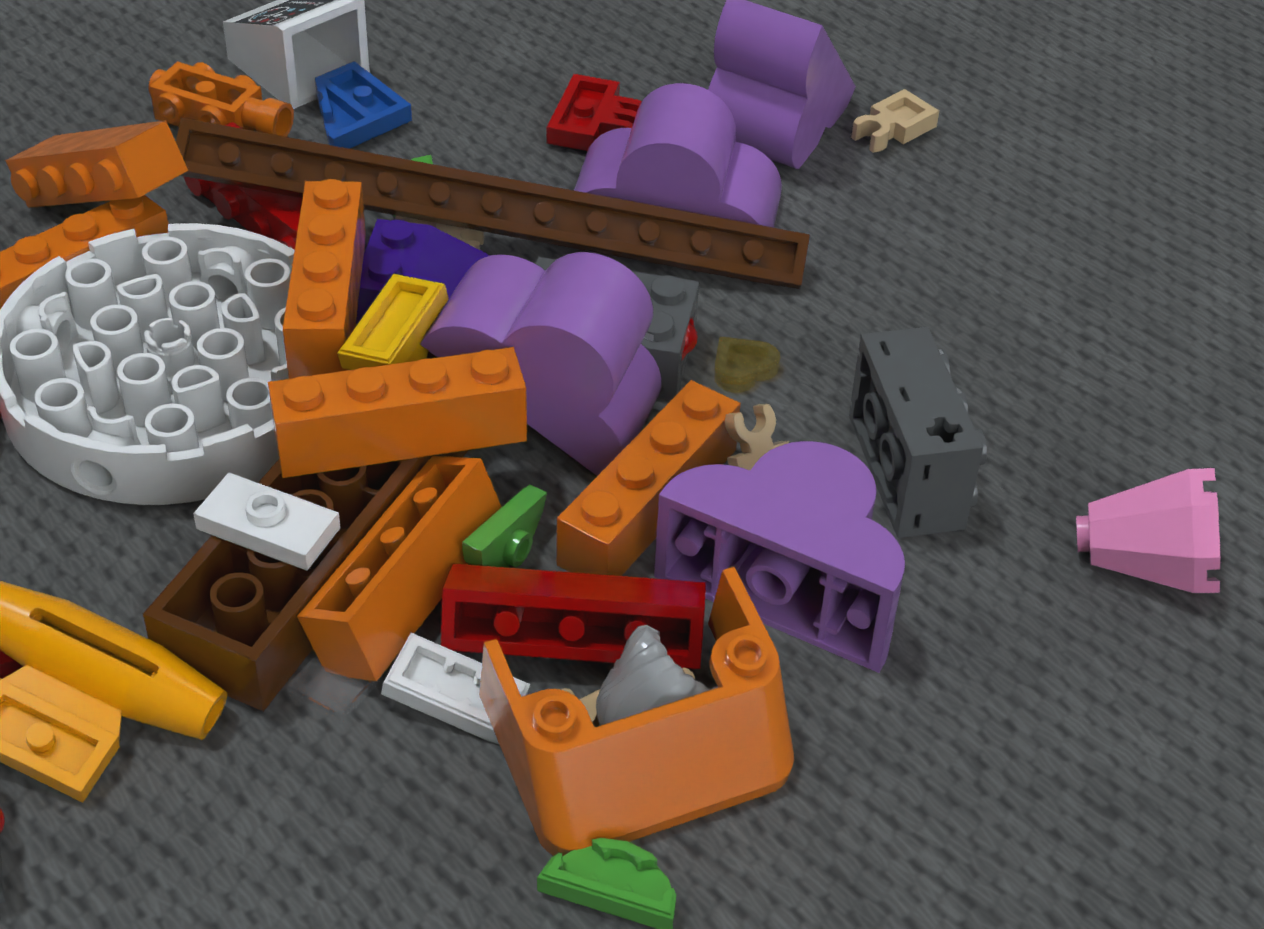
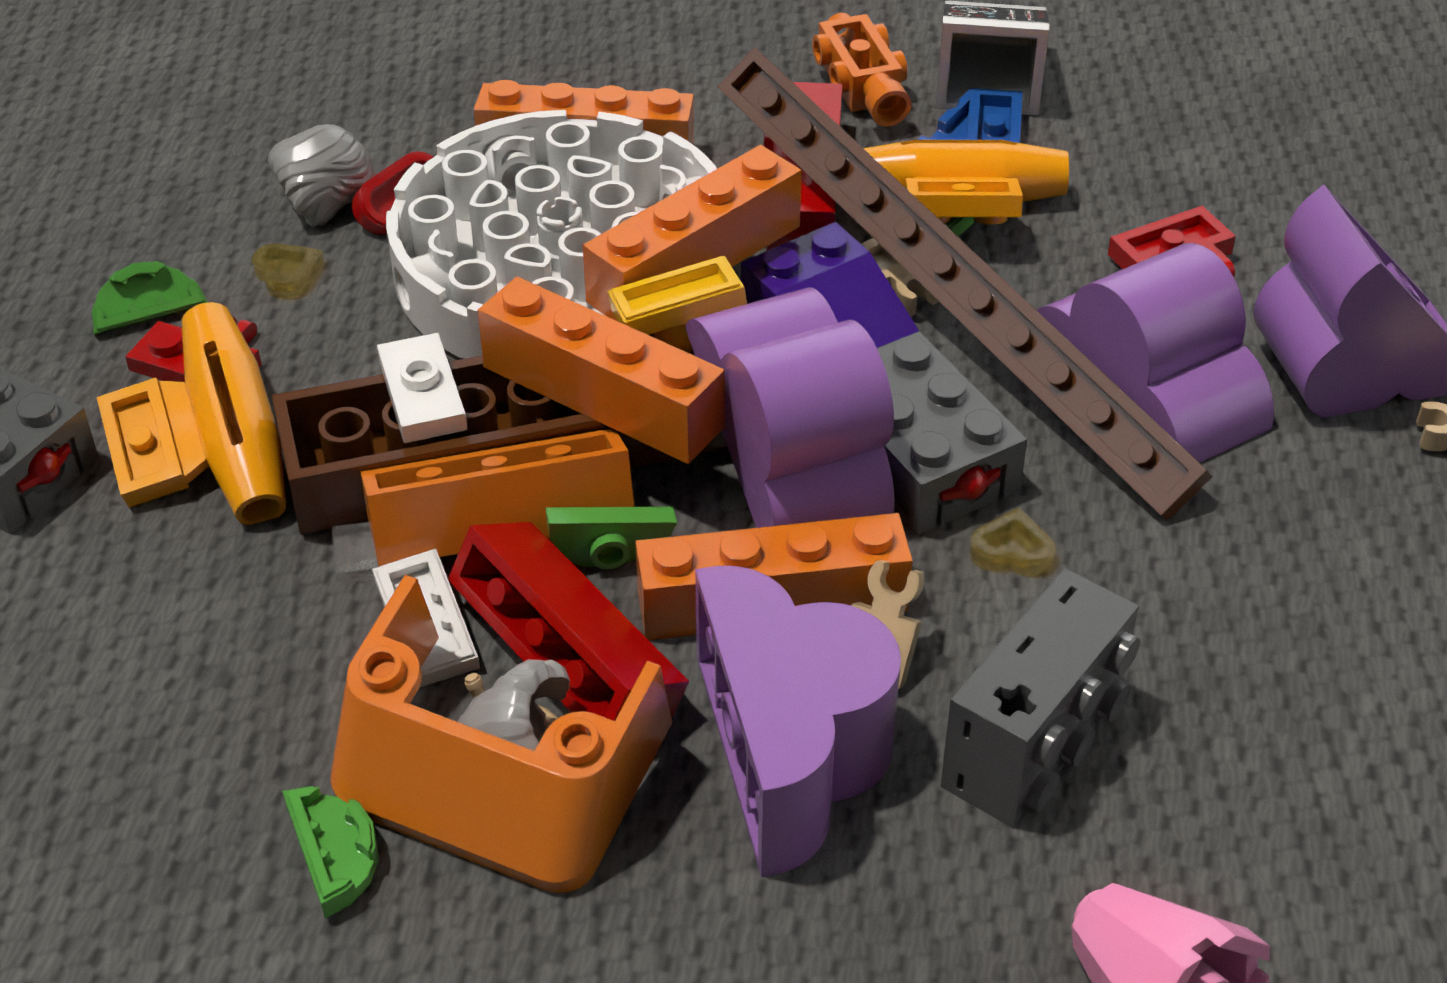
camera: 50 degrees right, 0 degrees up
(97, 165) = (678, 58): orange brick -> none
(422, 129) = (975, 176): none -> light orange plate

